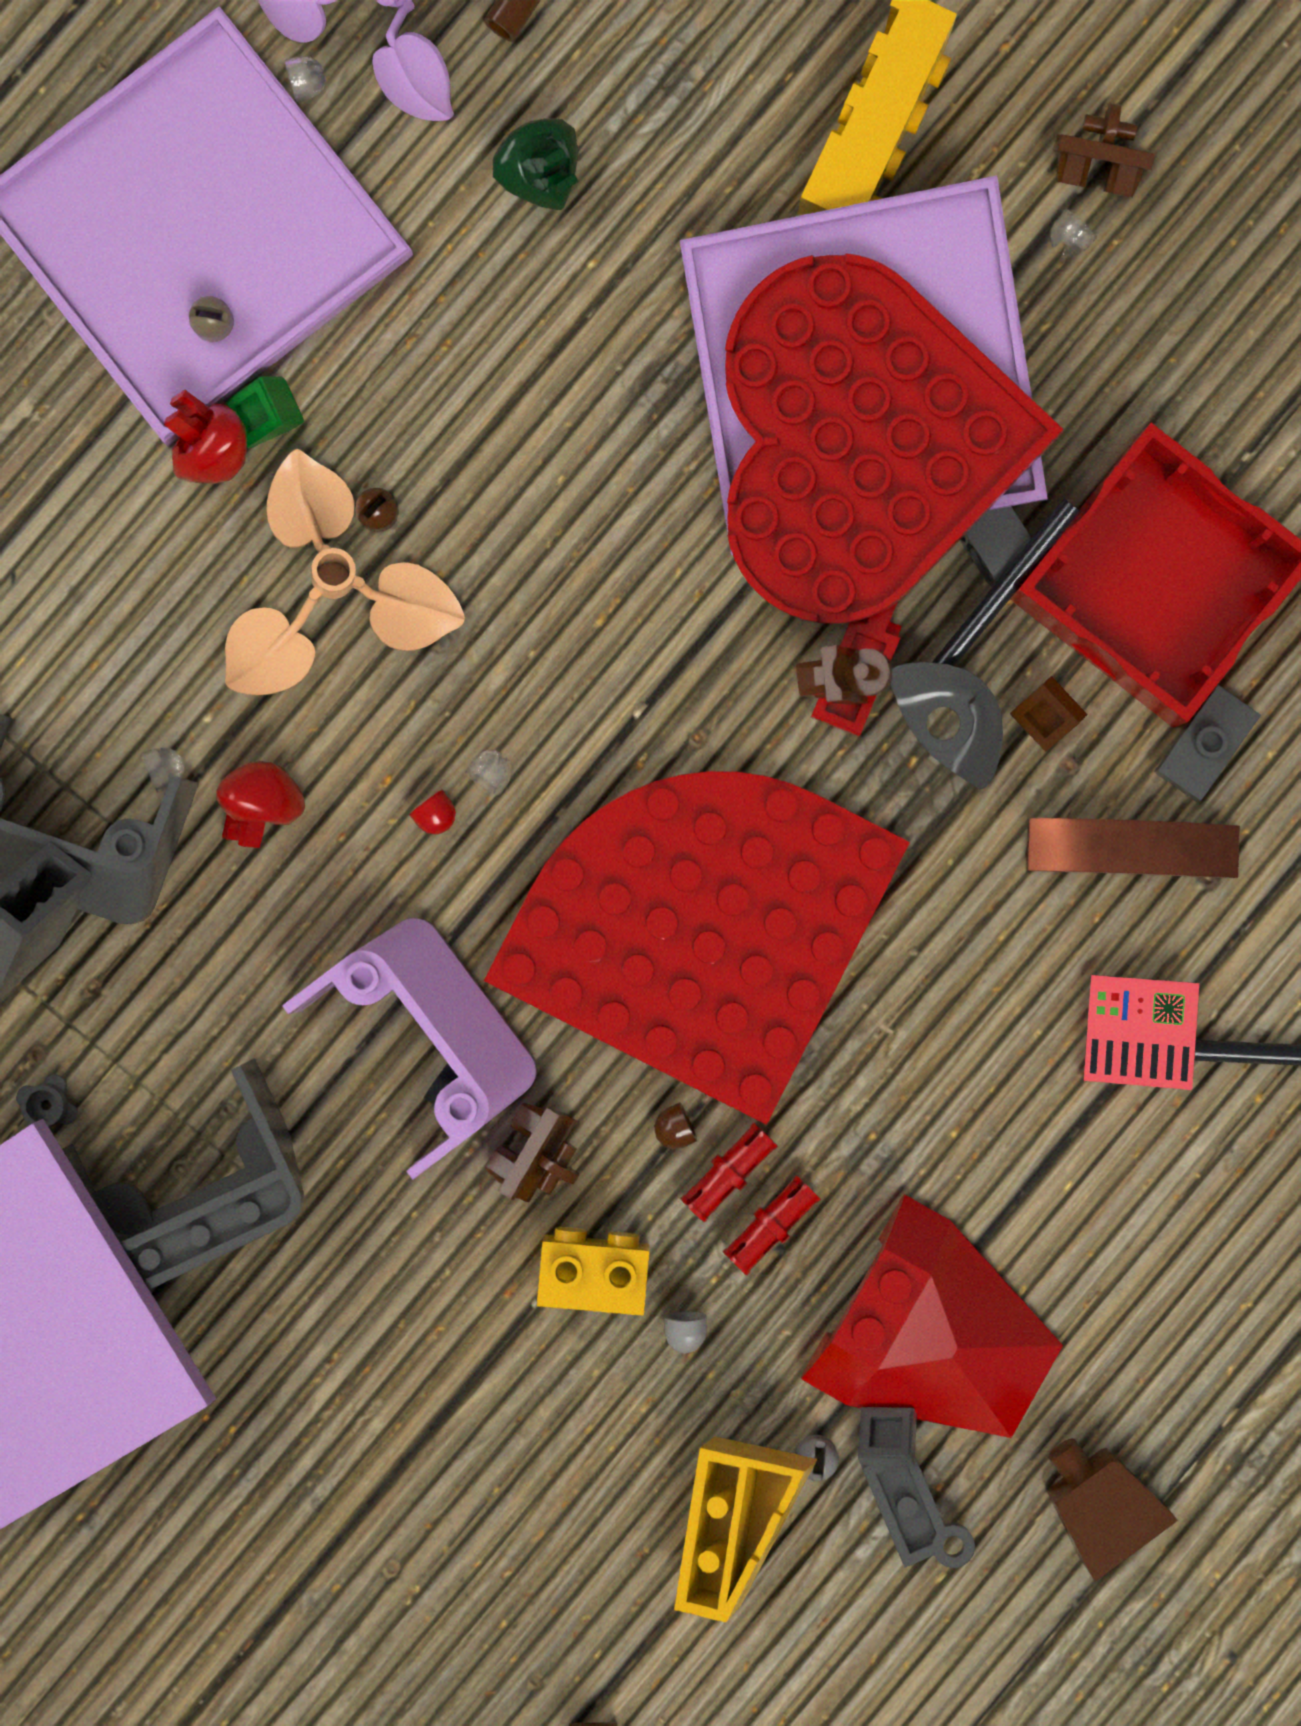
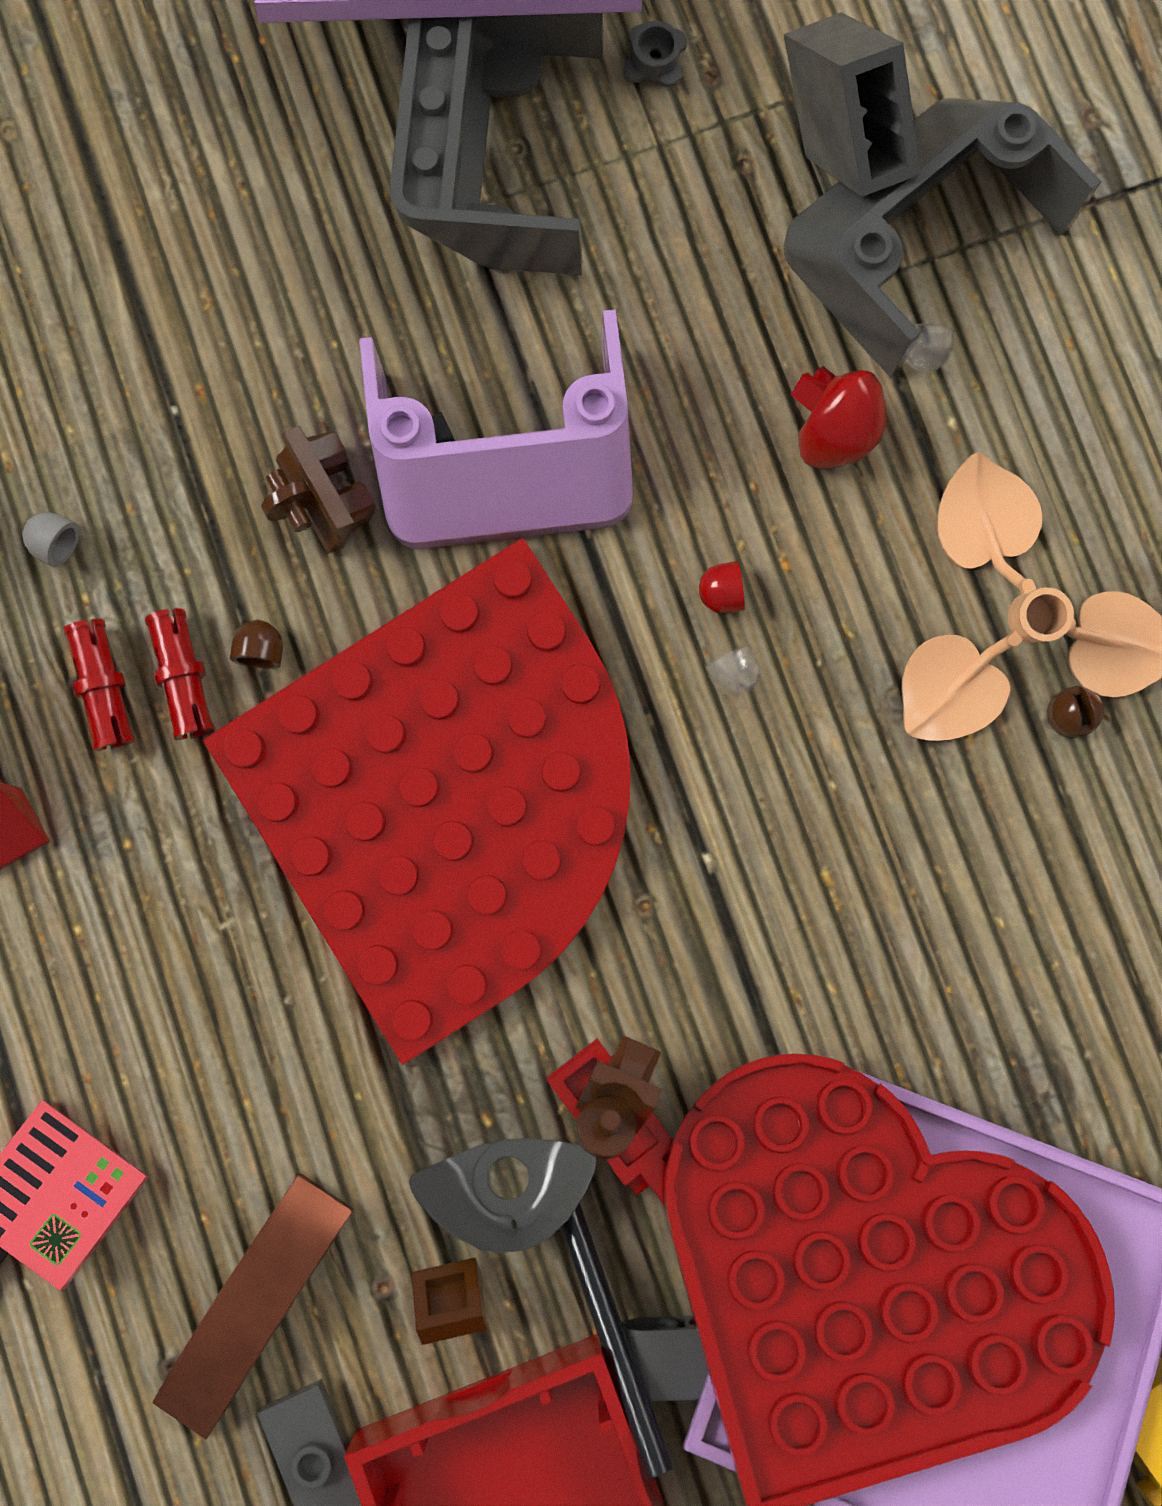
camera: 120 degrees right, 5 degrees down
(593, 1272) = (162, 477): yellow brick -> none

